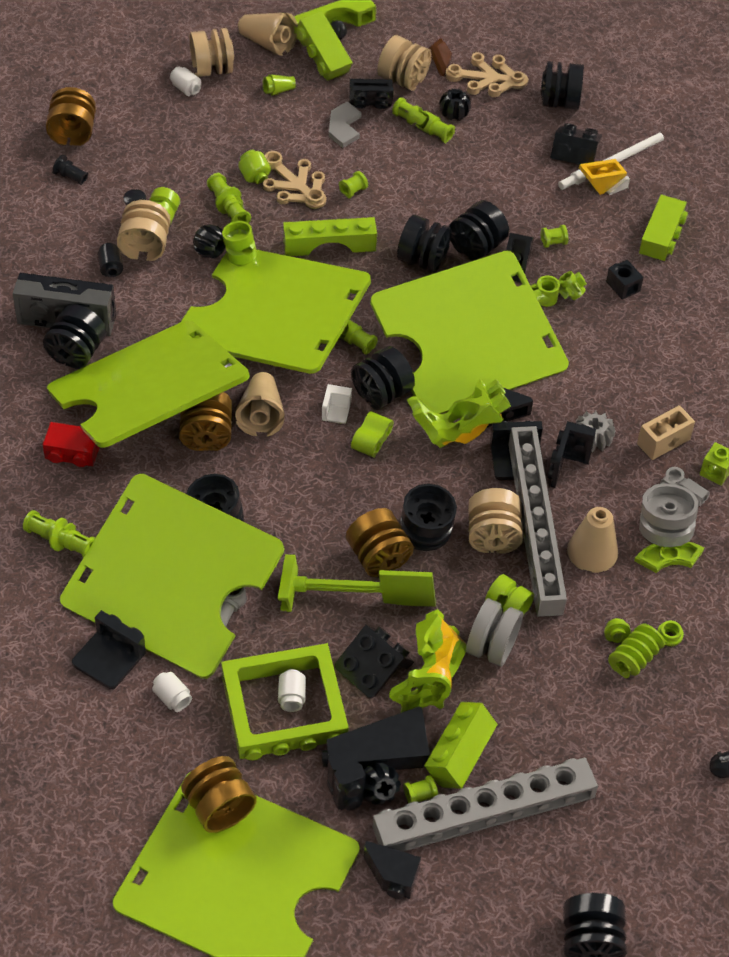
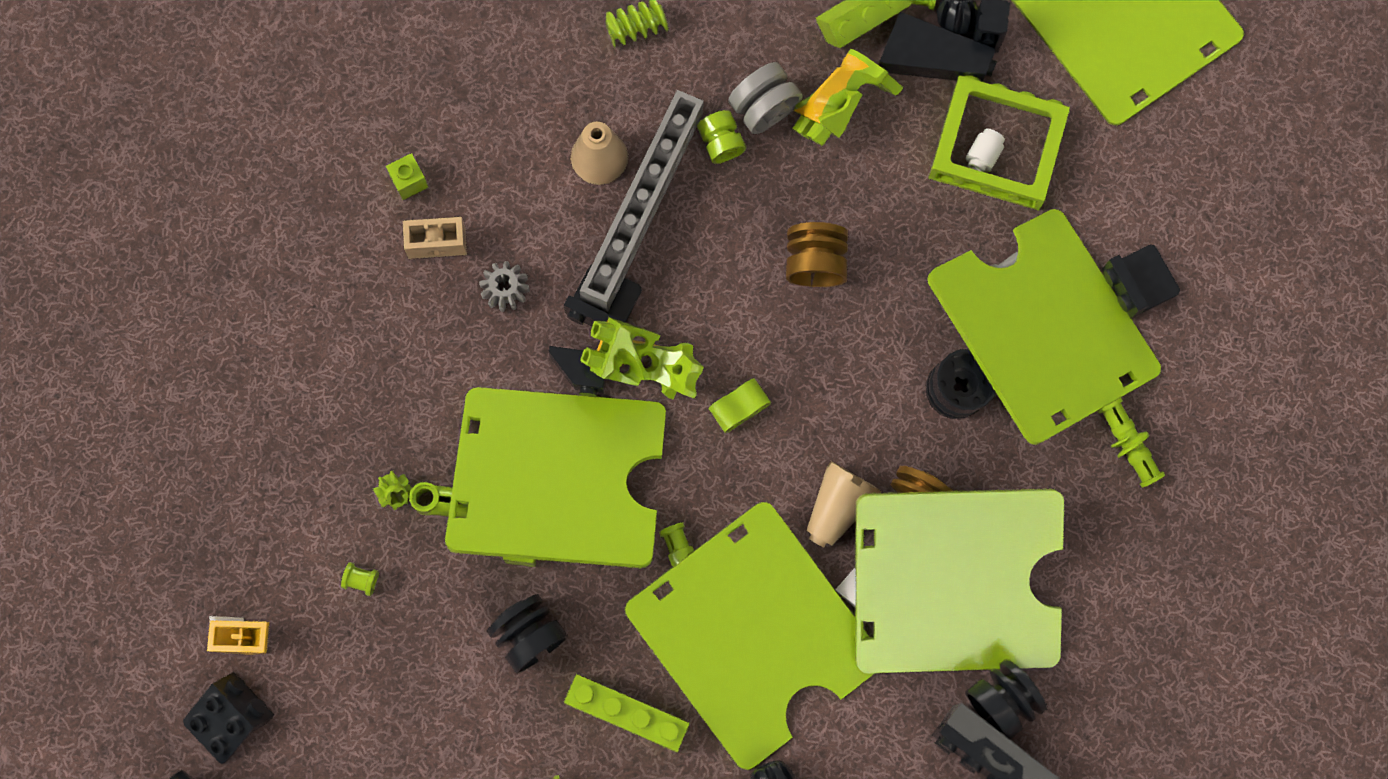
camera: 150 degrees left, 25 degrees up
(69, 445) = (1076, 562): red brick -> none
(171, 691) = (1099, 208): white brick -> none
(218, 794) = (1114, 64): pearl gold wheel -> none
(239, 242) = (745, 748): lime wheel -> none
(336, 404) = (756, 464): white panel -> none
(372, 660) = (887, 143): black bracket -> none
(383, 377) = (693, 460): black wheel -> none
(396, 586) = (837, 199): lime piece -> none
(428, 516) = (750, 244): black wheel -> none
(479, 230) = (451, 619): black wheel -> none
(495, 521) = (687, 215): tan wheel -> none
(521, 247) = (423, 570): black slope -> none
(572, 444) = (555, 272): black bracket -> none
(578, 177) = (261, 662): white bar -> none
(617, 630) = (639, 54): lime plate -> none
(624, 279) = (323, 457): black brick -> none
(658, 557) = (526, 113): lime tile -> none
(663, 228) = (224, 521): lime brick -> none
(668, 515) = (494, 126): light grey wheel -> none
(673, 627) = (589, 21): lime plate -> none
(676, 476) = (462, 189): light grey bar -> none

